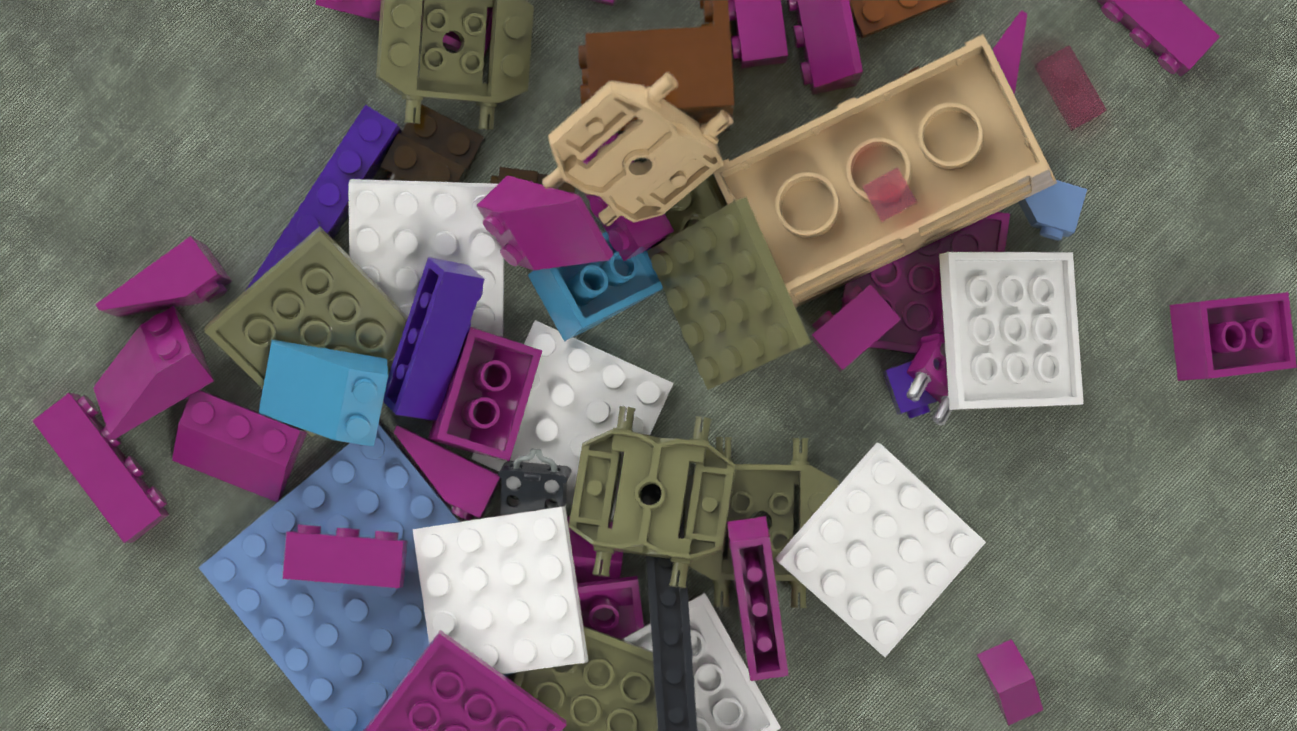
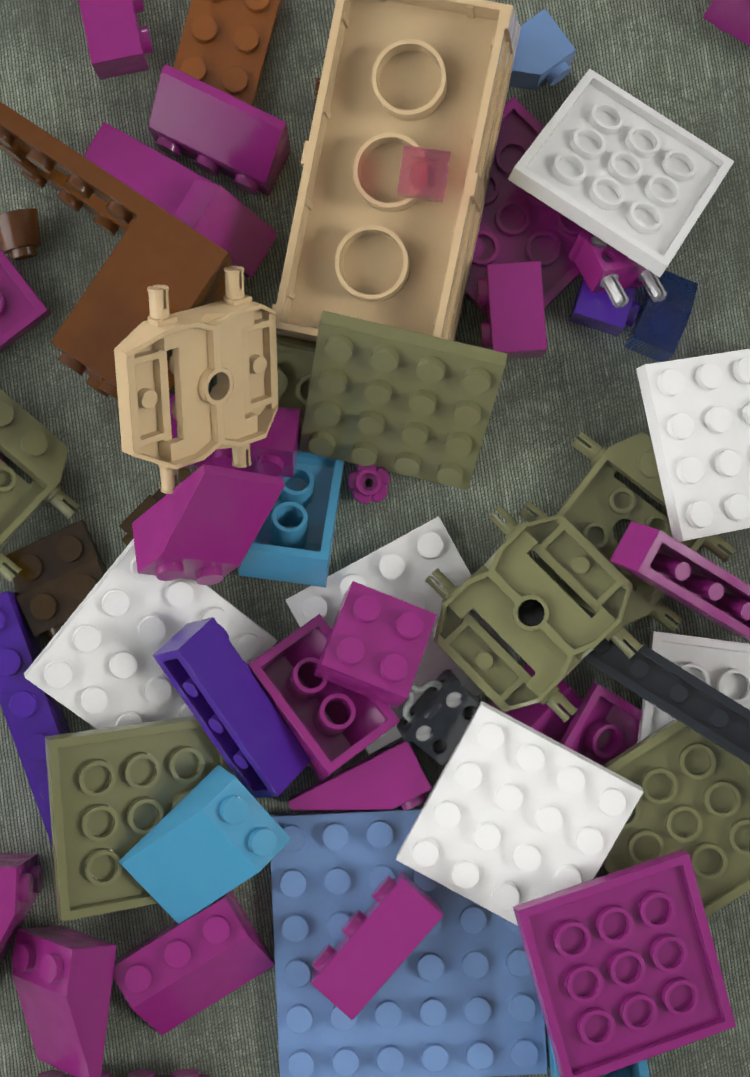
camera: 55 degrees left, 0 degrees up
(549, 404) = (375, 645): none -> magenta brick
(650, 320) = (365, 494): none -> magenta plate
(759, 83) = (227, 223): none -> magenta brick
(926, 438) = (663, 322): none -> clear blue slope

